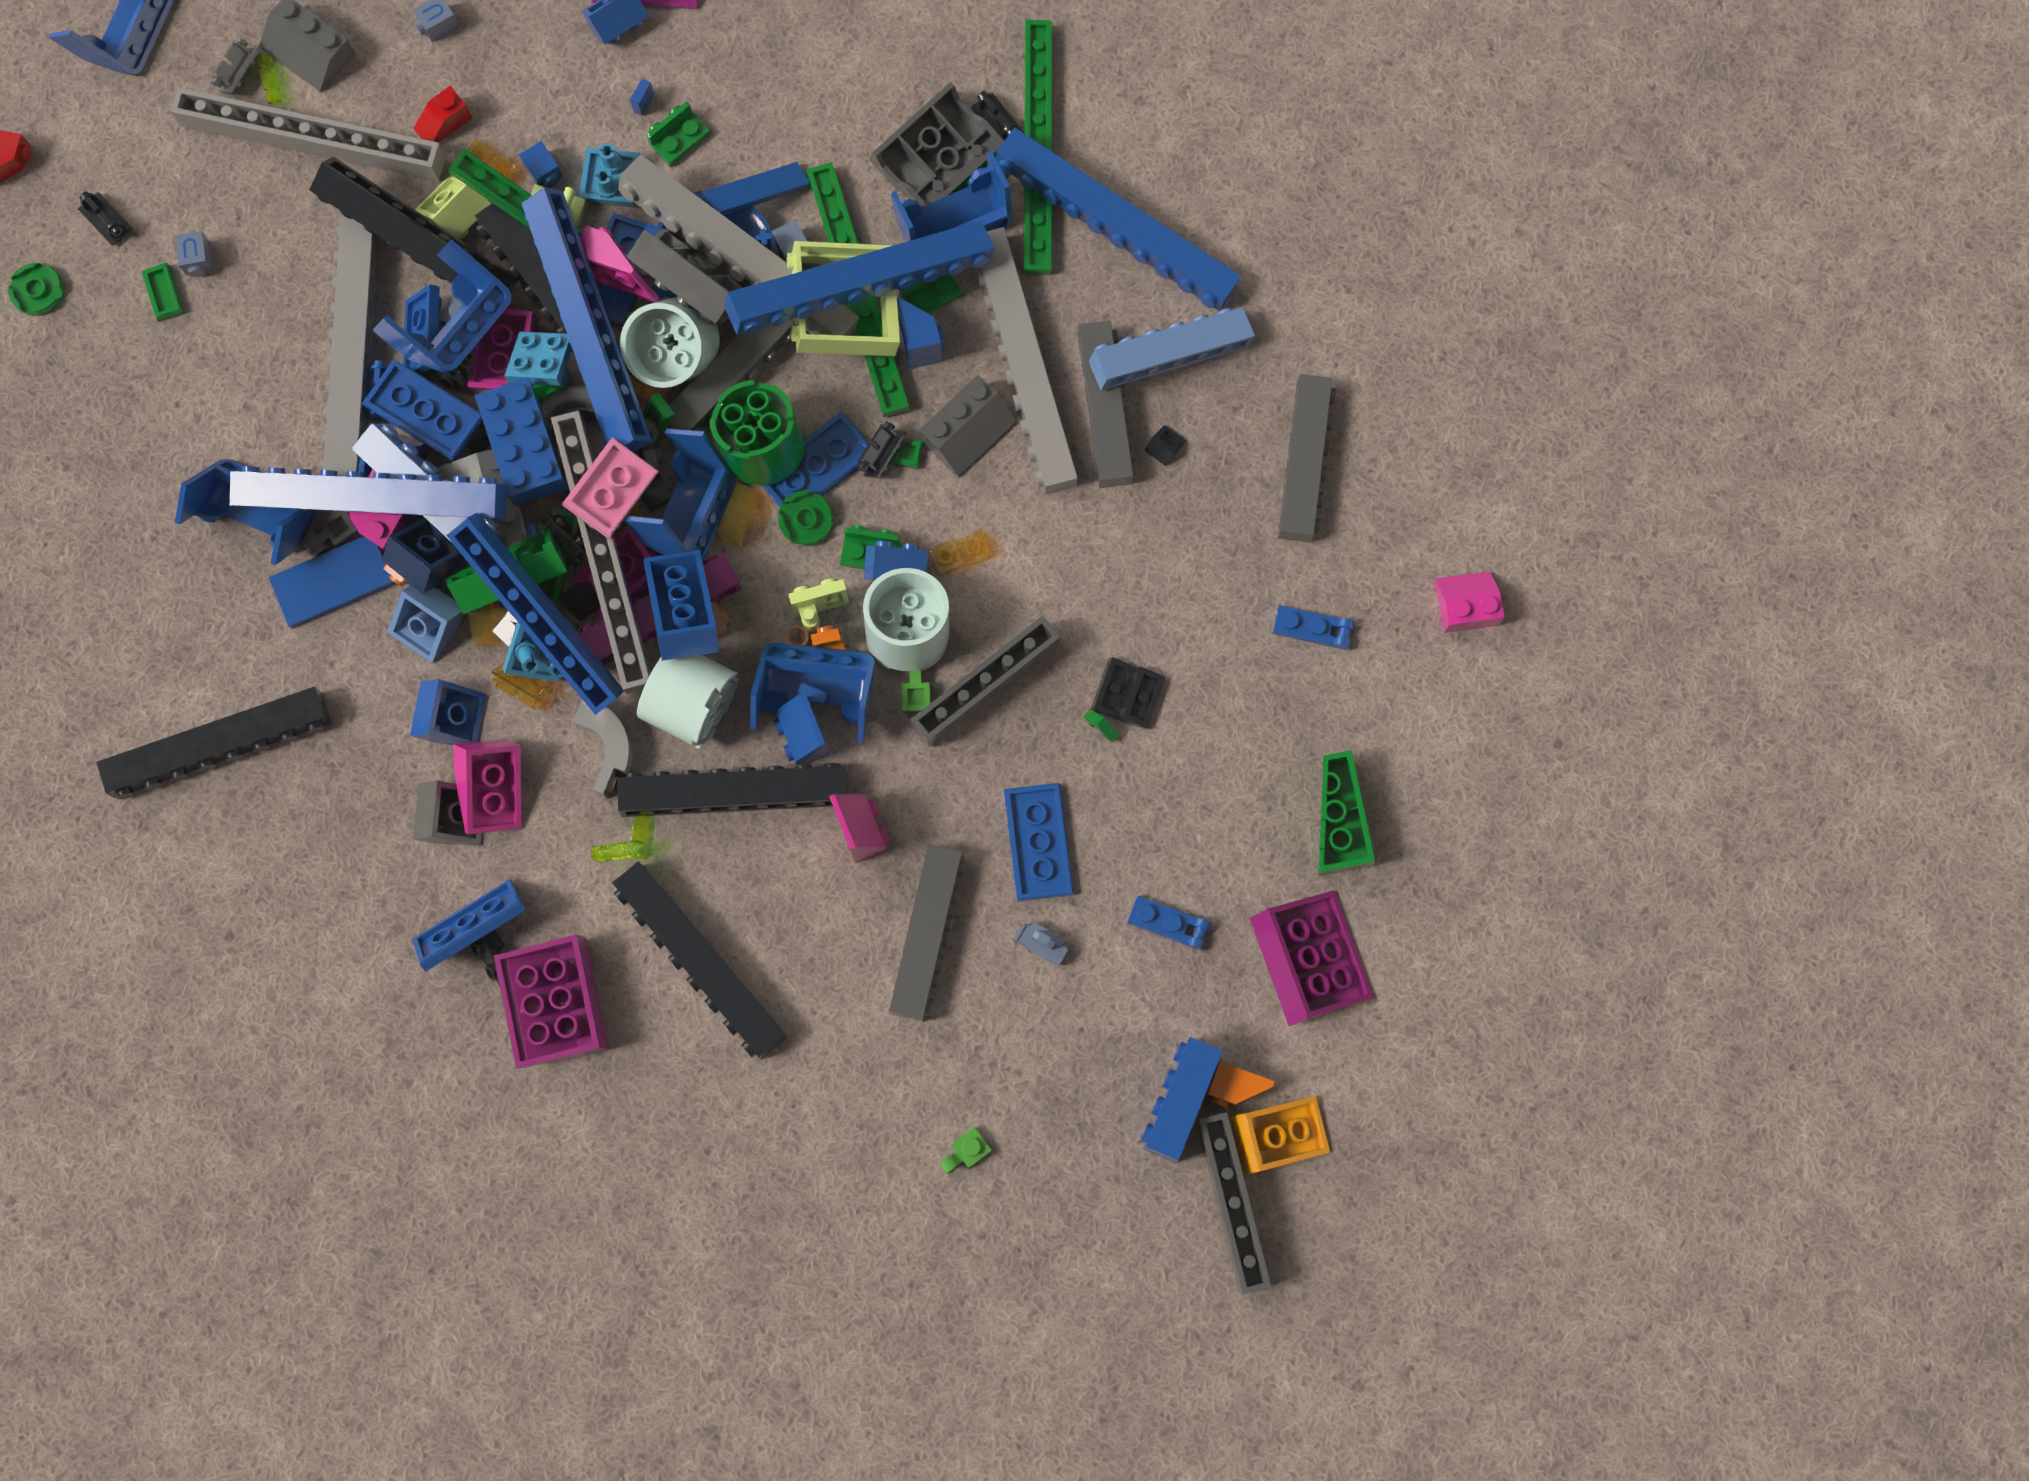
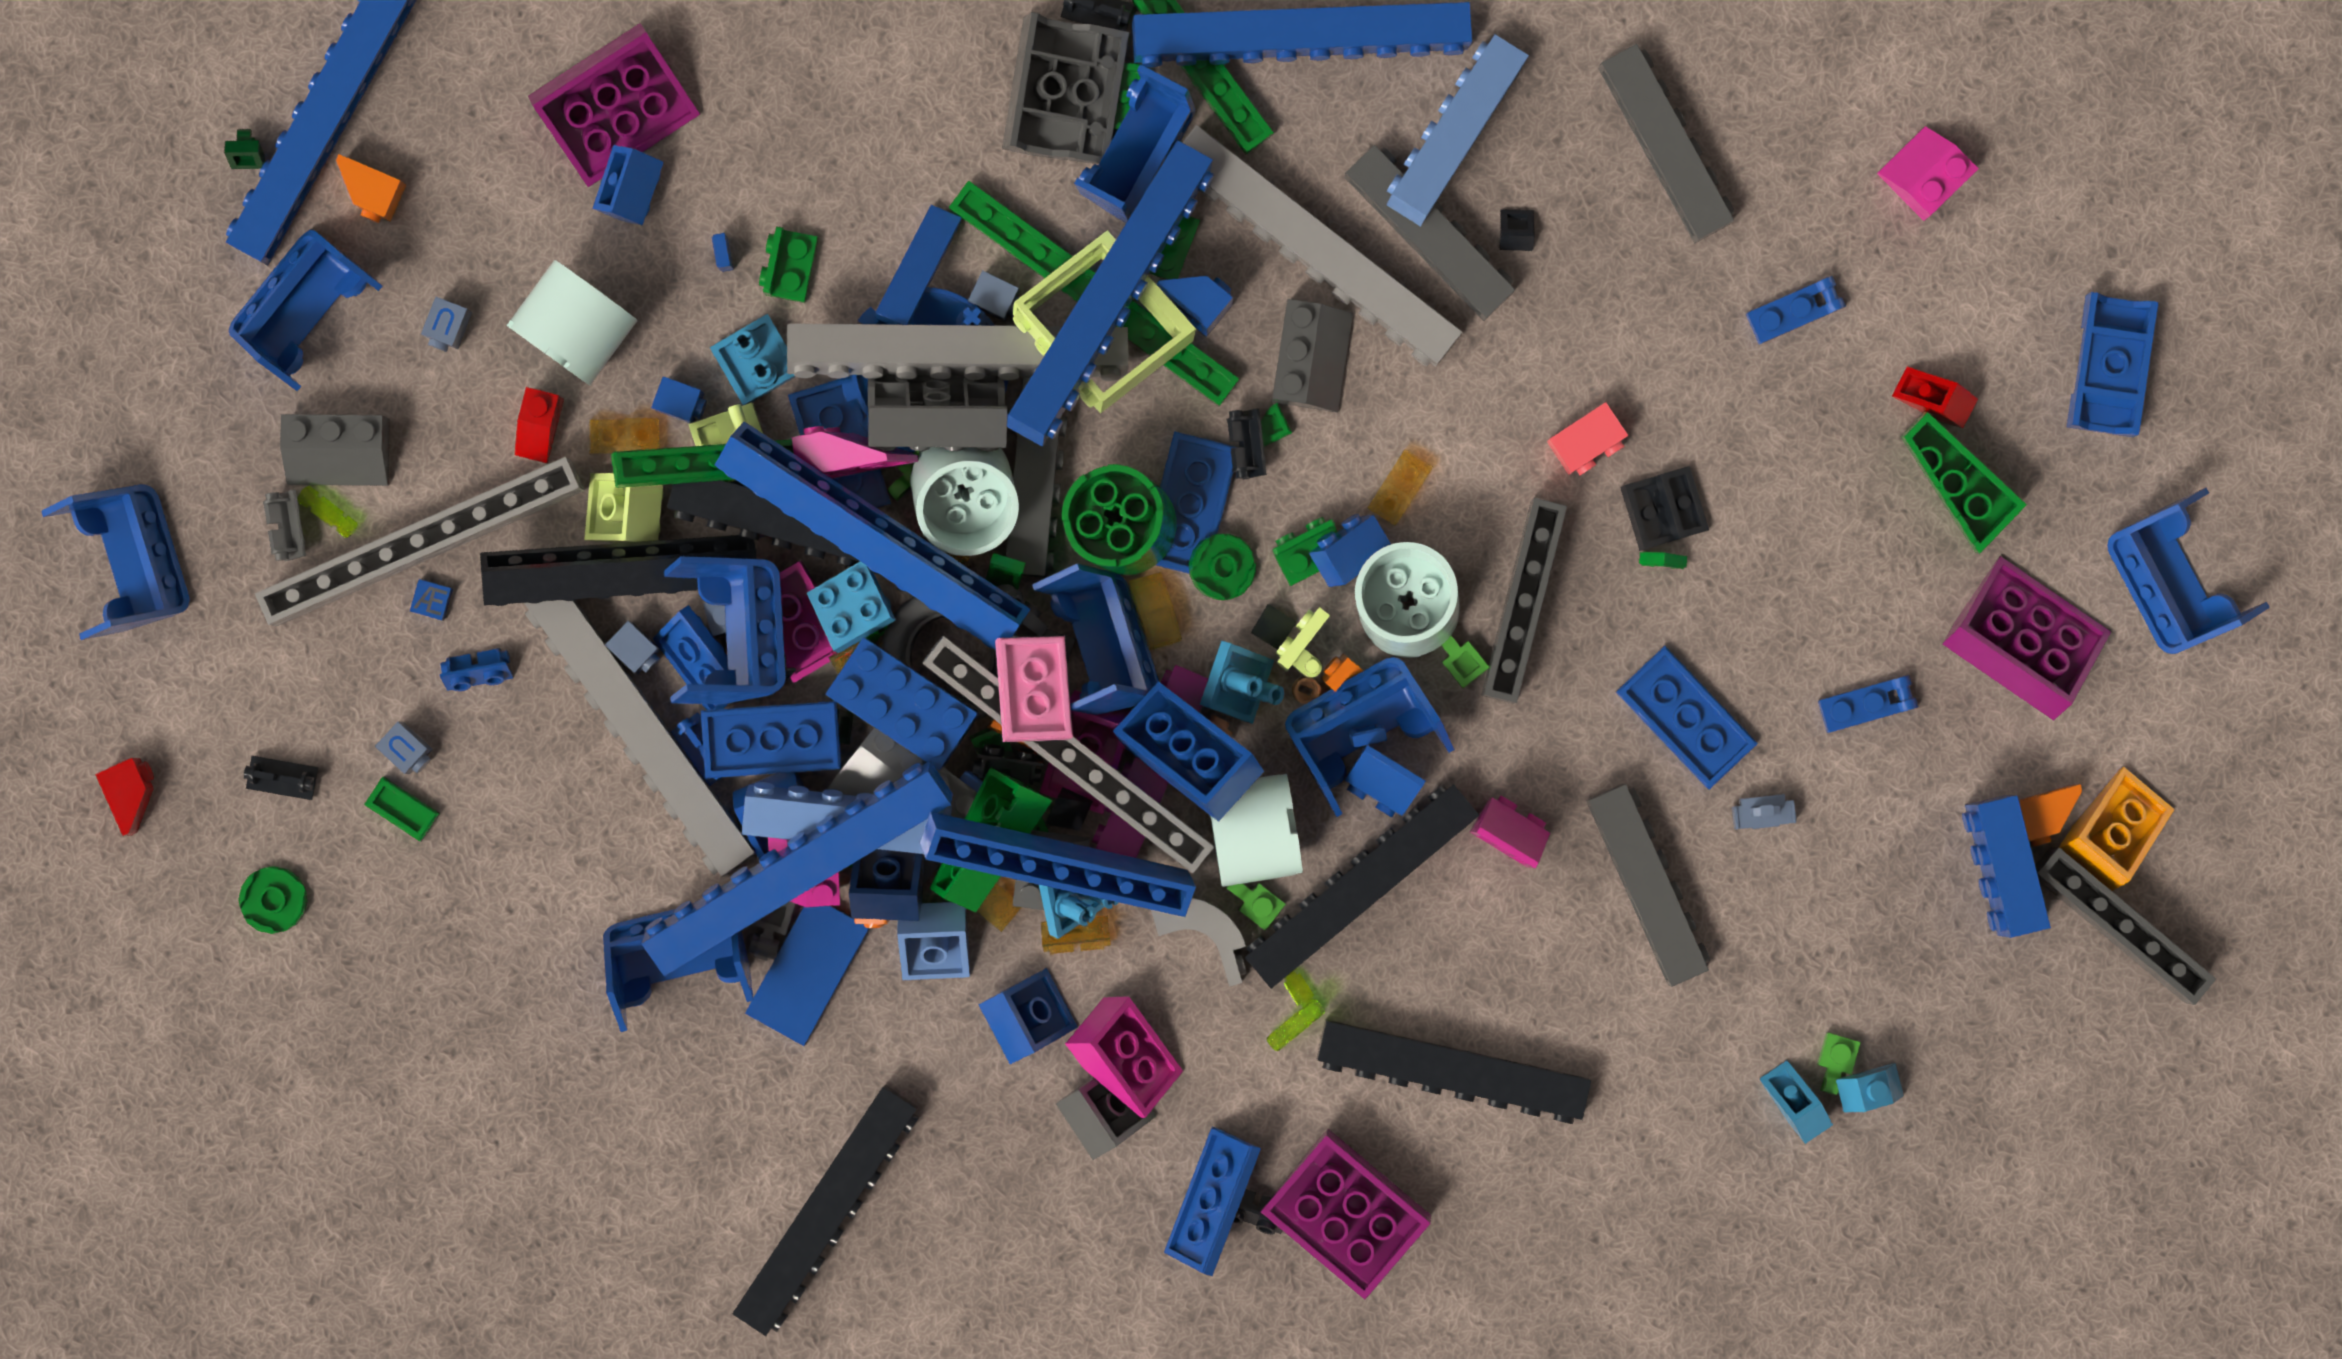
camera: 35 degrees left, 10 degrees up
(269, 236) = (461, 674): none -> blue hinge
(288, 178) = (431, 600): none -> blue tile
(387, 295) = (634, 648): none -> sand blue brick
(509, 64) = (572, 322): none -> light aqua brick
(657, 754) = (1259, 904): none -> bright green plate
(755, 597) = (1240, 683): none -> dark azure plate
(806, 575) = (1273, 627): none -> black slope
(915, 1158) = (1796, 1102): none -> dark azure slope
(974, 1186) = (1870, 1089): none -> dark azure slope
(1109, 609) = (1587, 439): none -> coral brick
(1368, 750) = (1939, 397): none -> red slope
(1436, 988) = (2167, 585): none -> blue windscreen
(1503, 816) = (2112, 365): none -> blue piece

